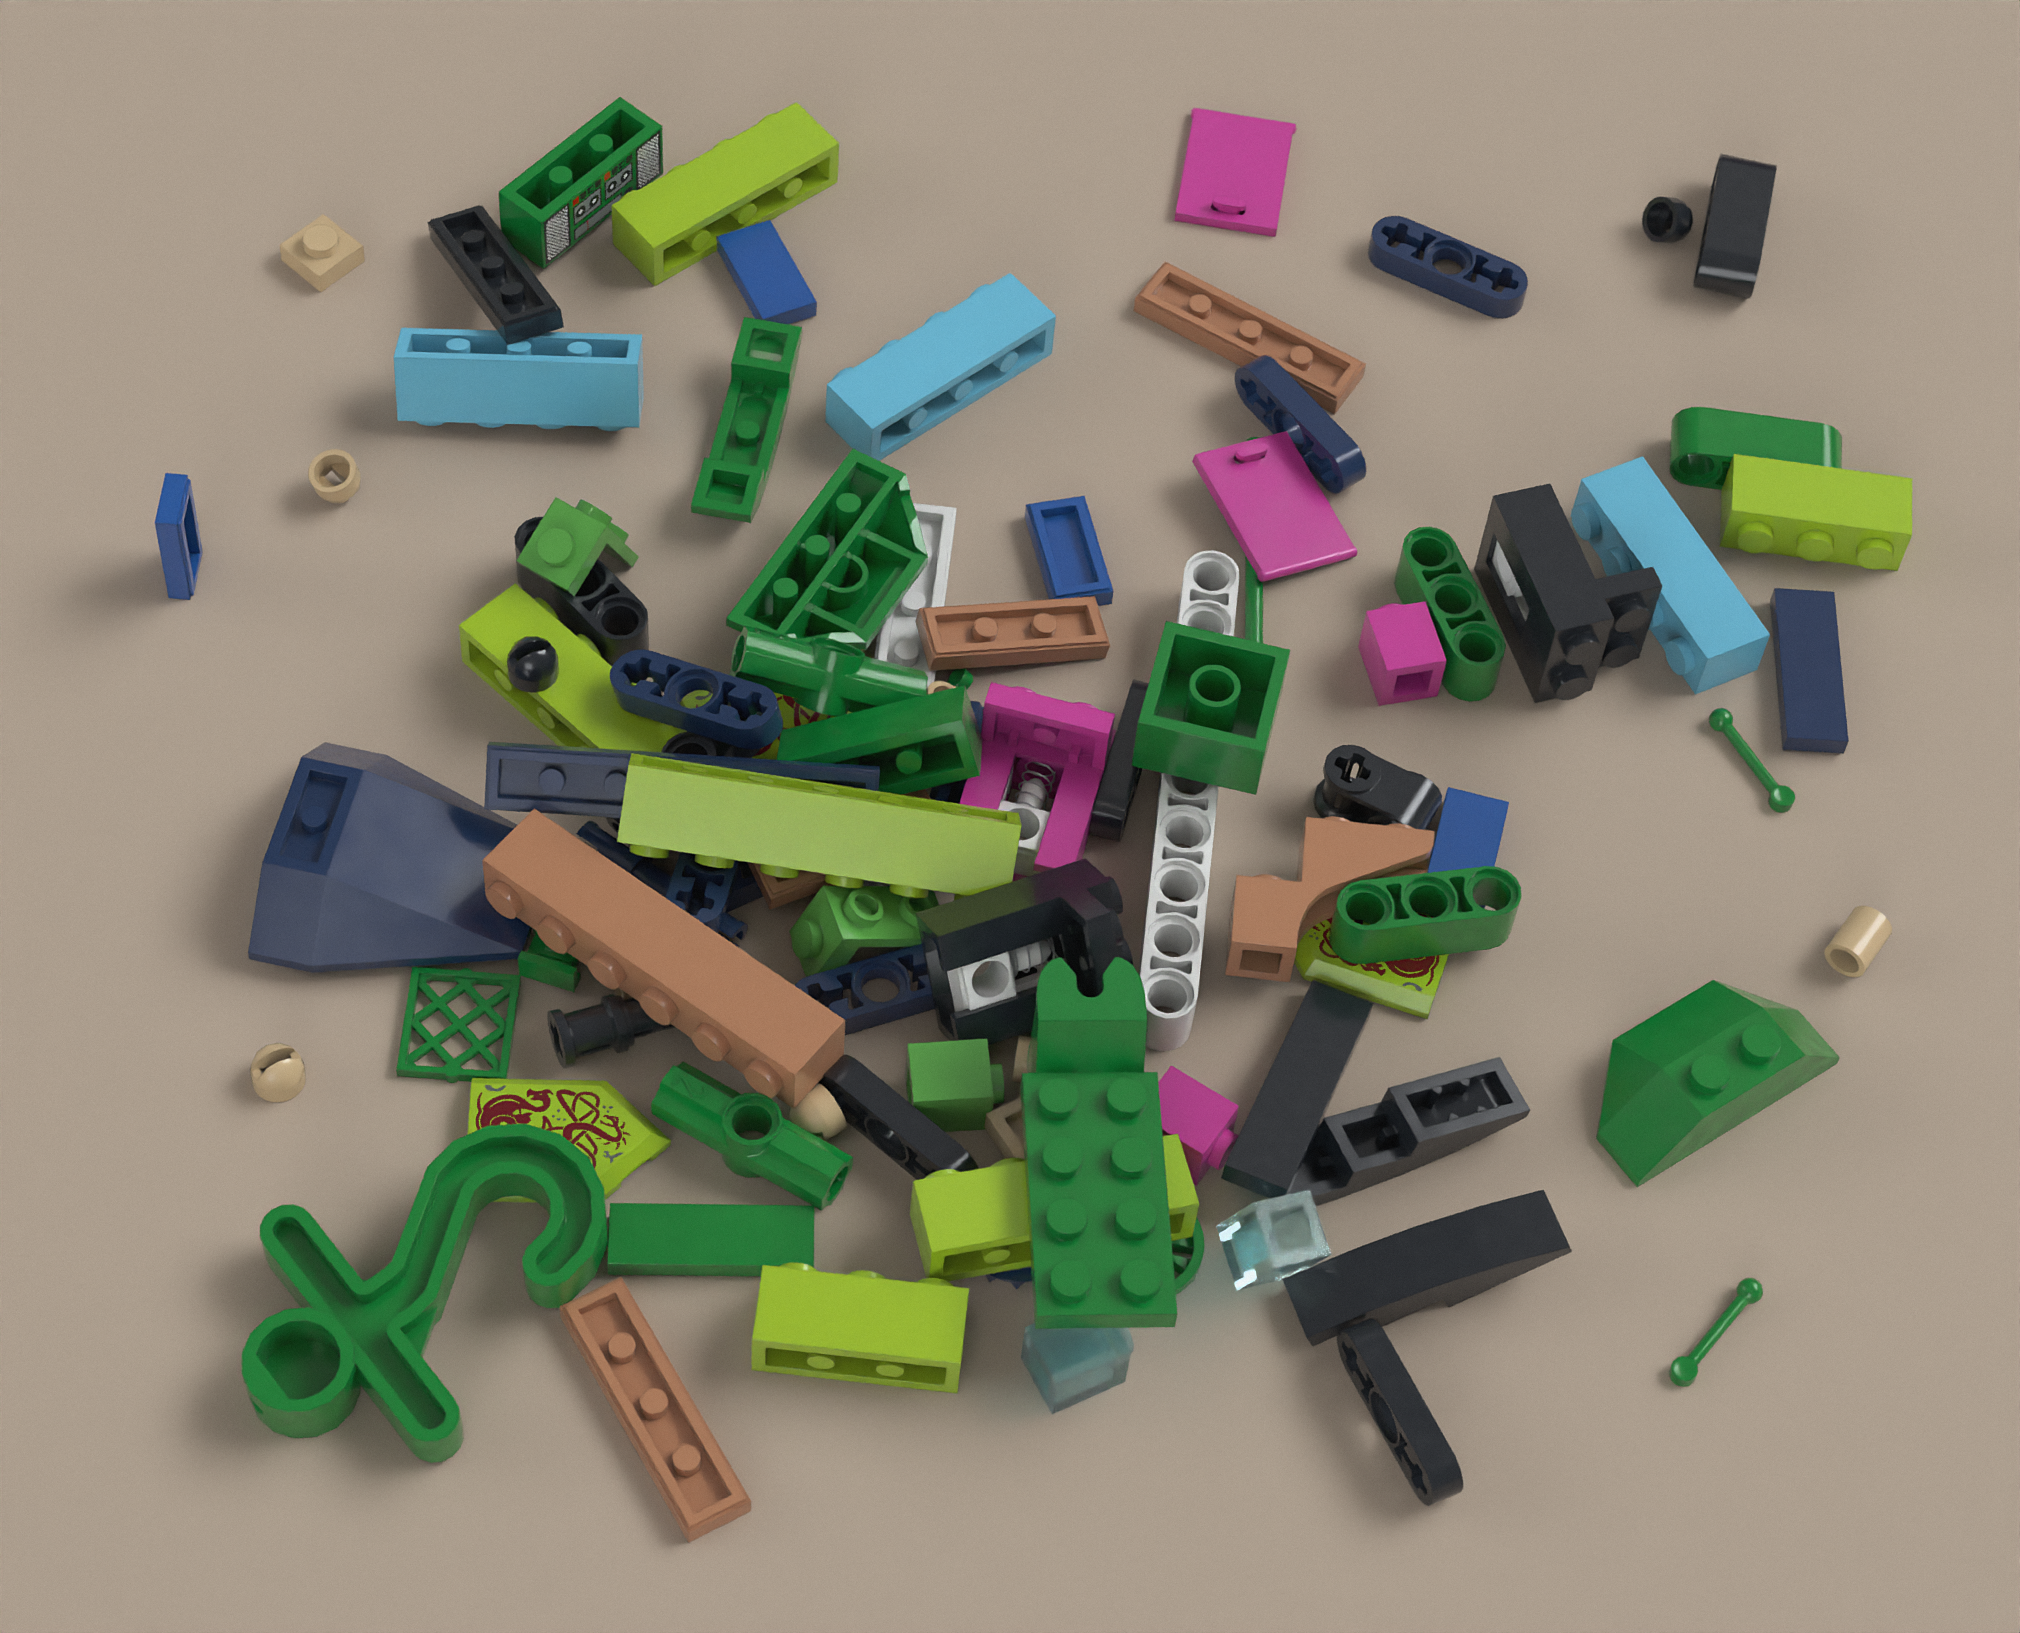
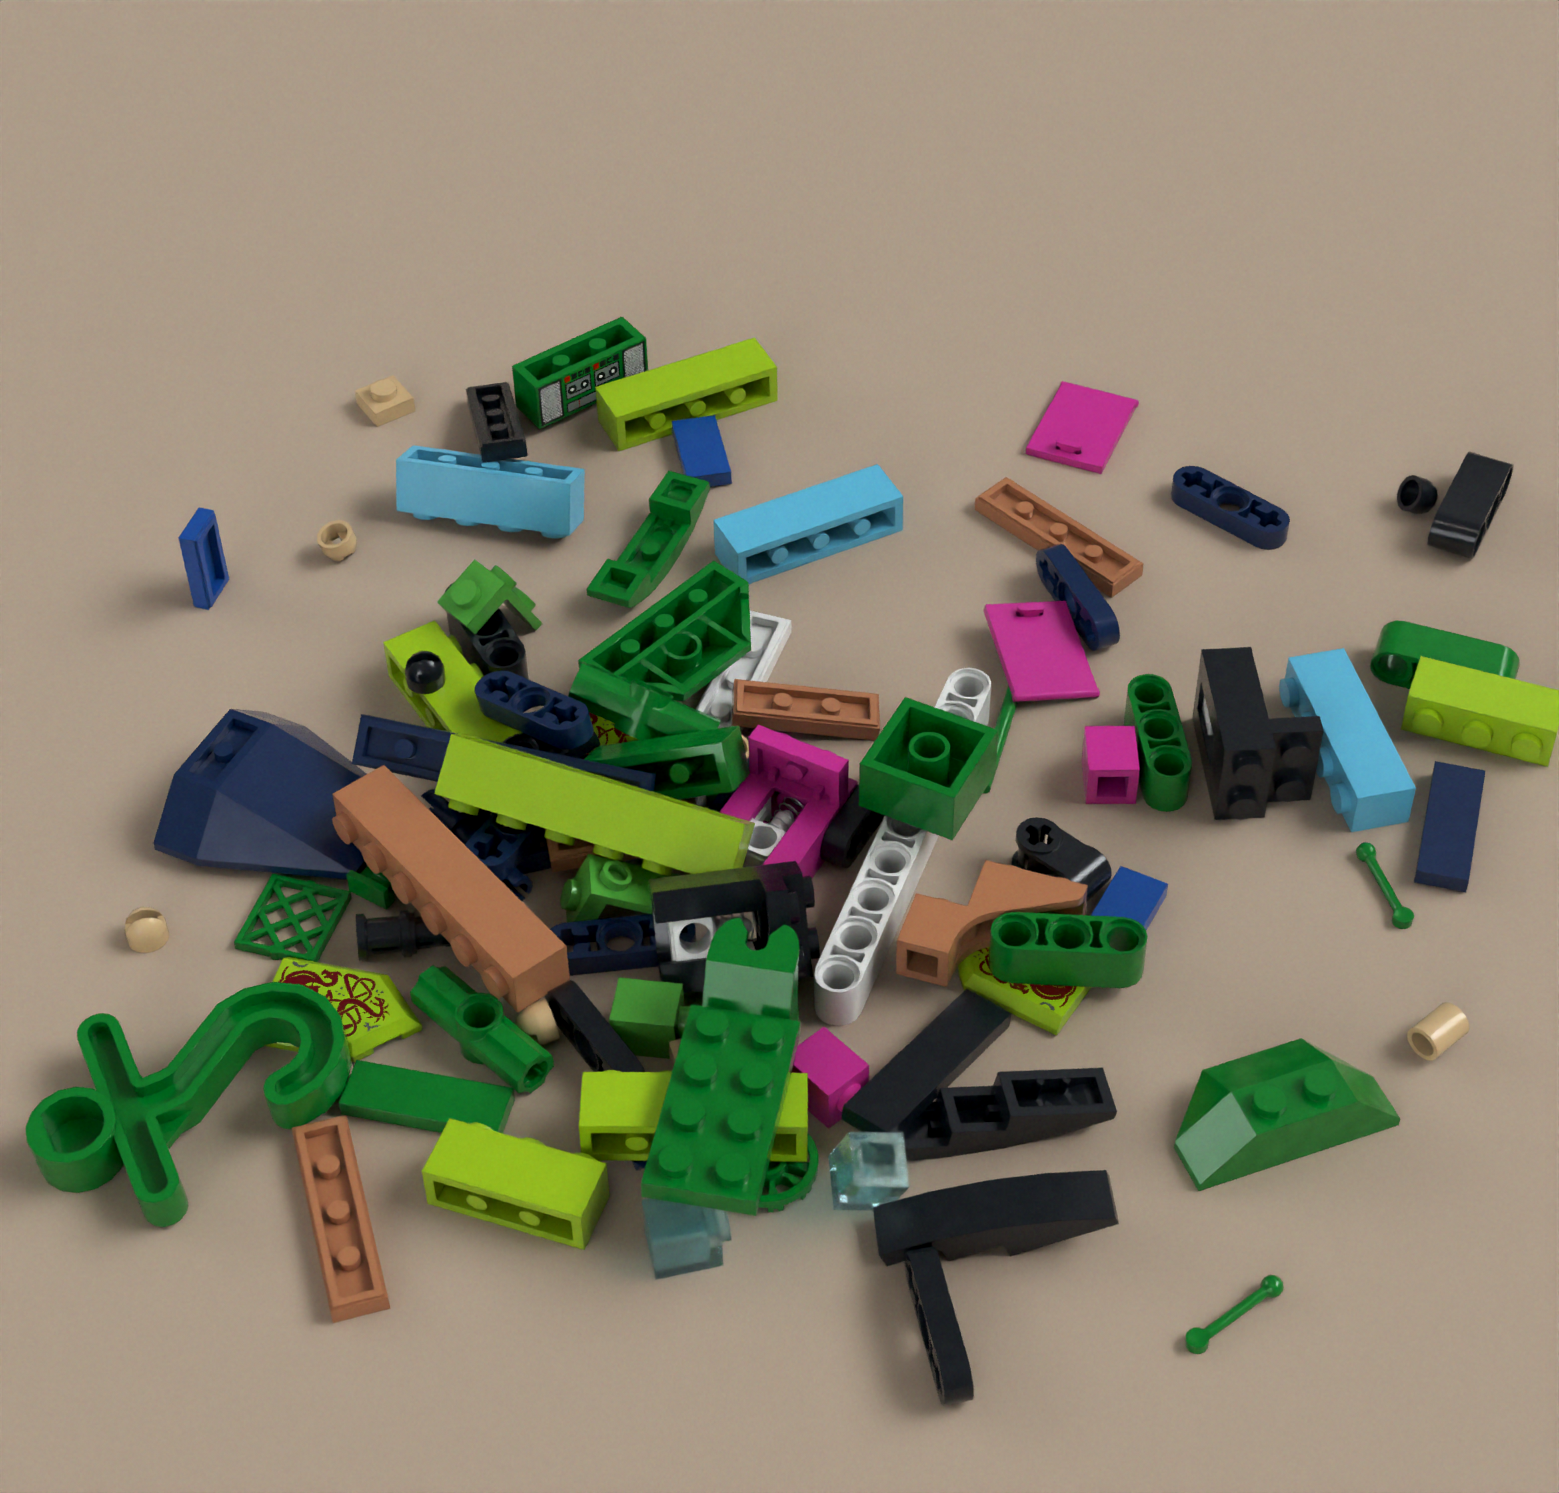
camera: 20 degrees right, 10 degrees down
(1068, 550) = (870, 660): blue tile -> none

